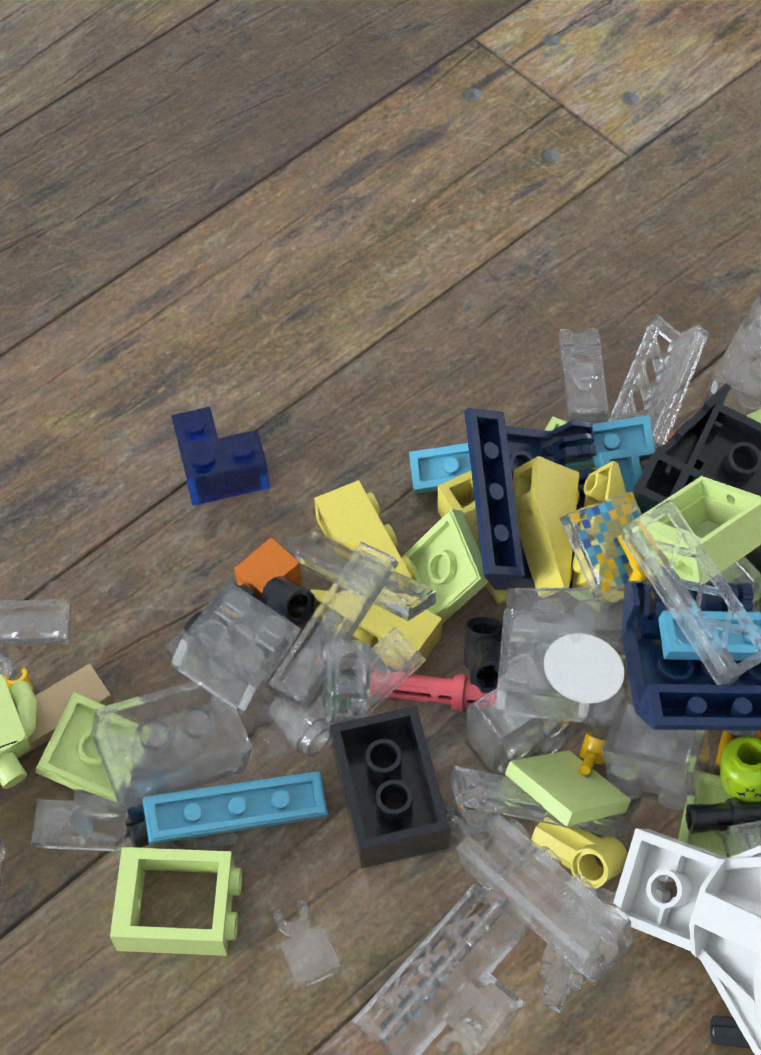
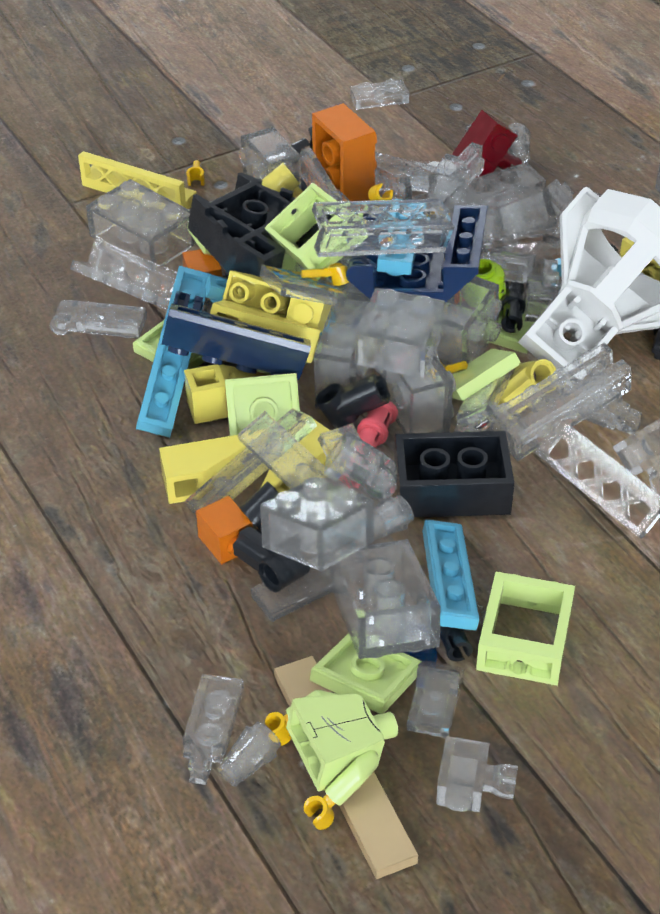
camera: 80 degrees left, 15 degrees down
(215, 465) = (83, 555): clear blue brick -> none
(307, 950) = (576, 554): clear plate -> none
(584, 670) = (423, 294): white sticker -> none

